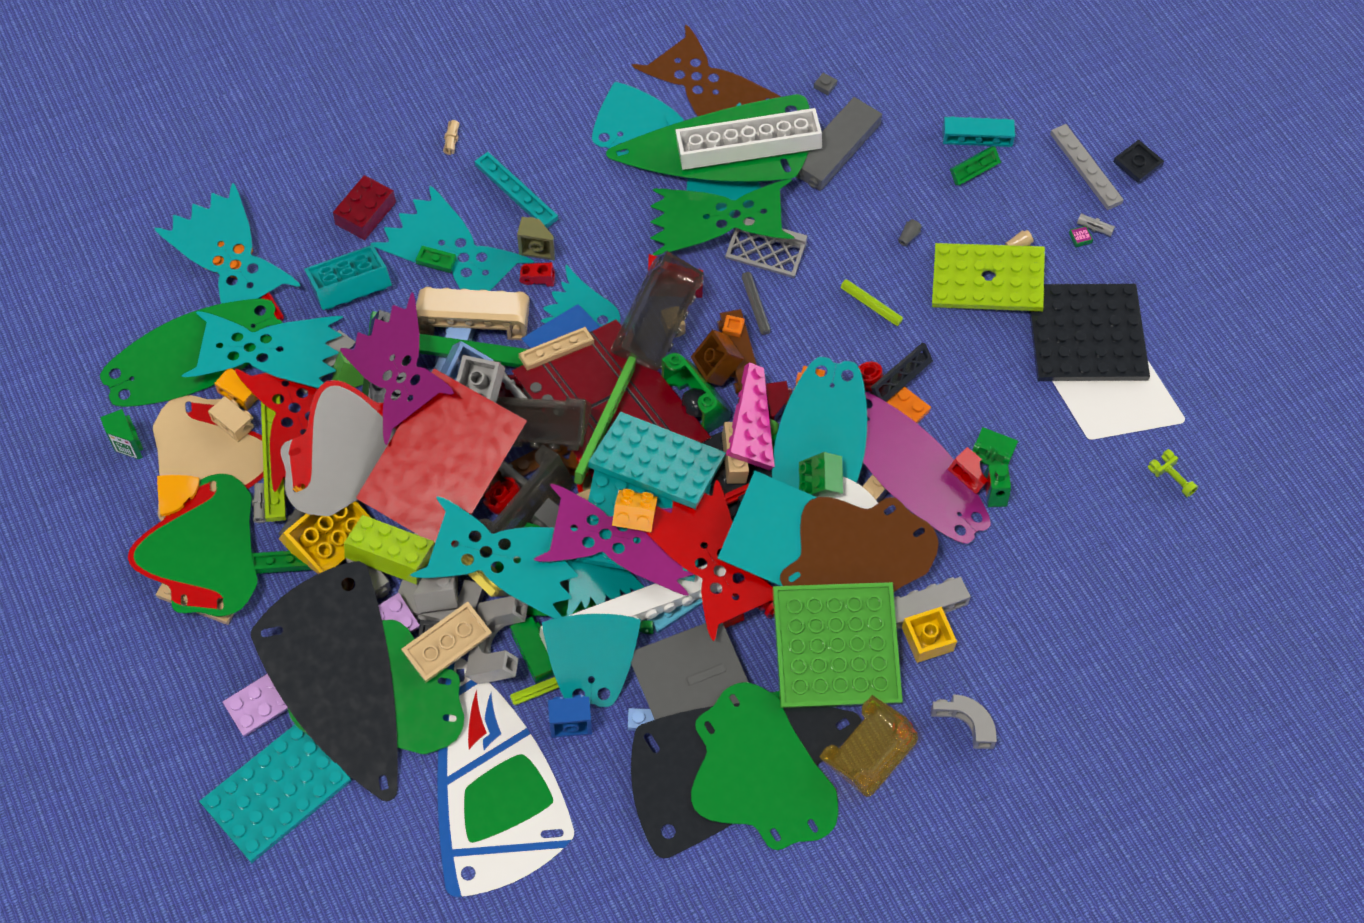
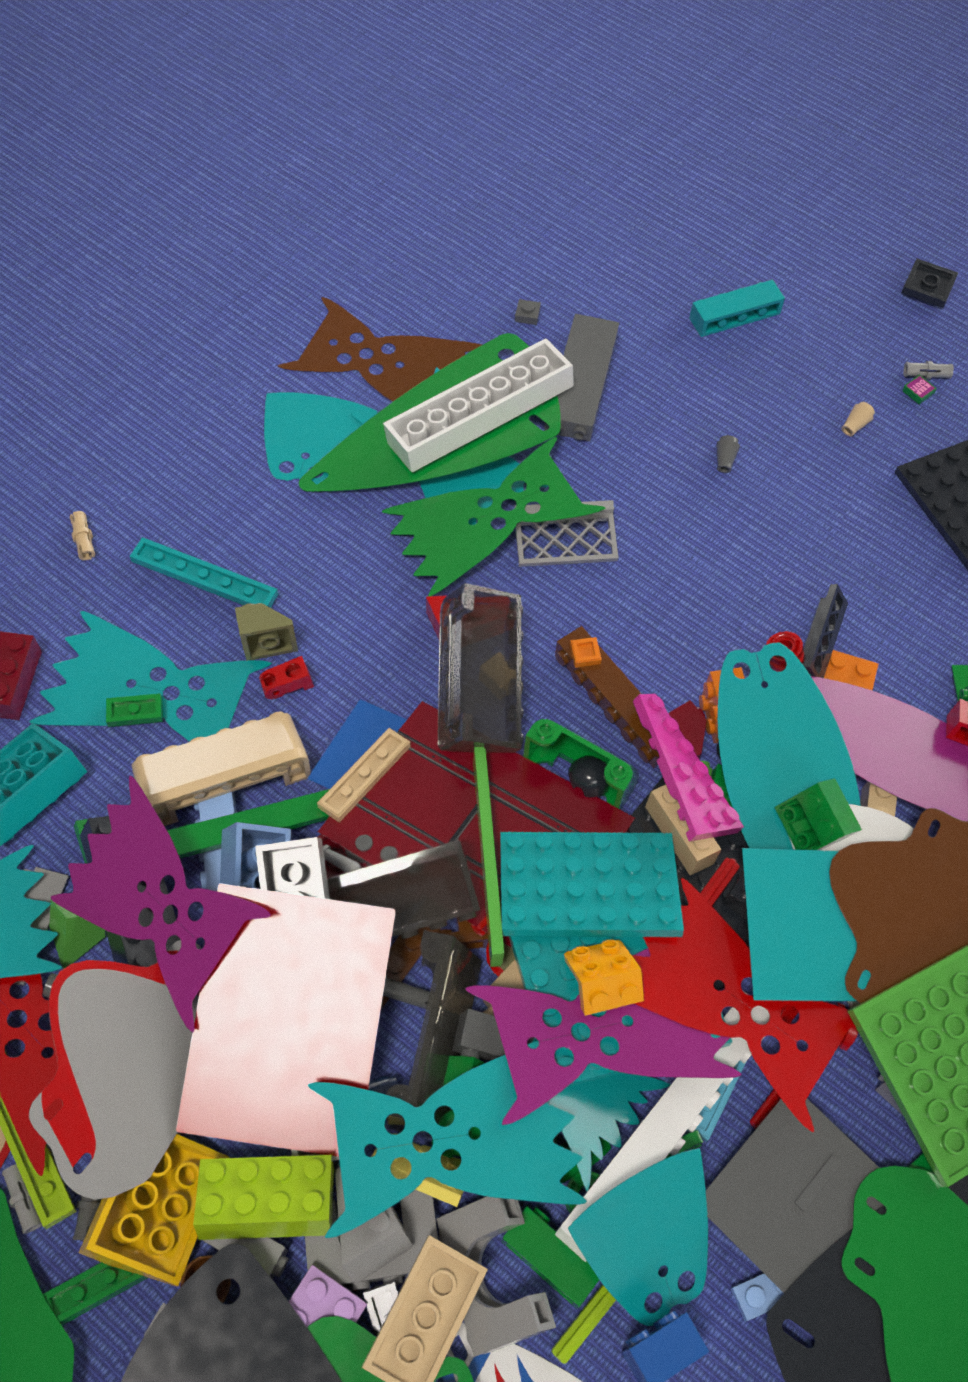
camera: 25 degrees left, 0 degrees up
(501, 494) = (398, 1029): red cylinder -> none
(579, 293) = (354, 684): teal piece -> none
(717, 357) = (588, 703): reddish brown brick -> none
(756, 303) = (590, 611): dark grey axle -> none
(871, 302) = (730, 556): lime axle -> none
(975, 165) = (756, 348): green plate -> none
(1015, 286) = (822, 497): lime plate -> none
(1086, 167) = (876, 308): light grey plate -> none

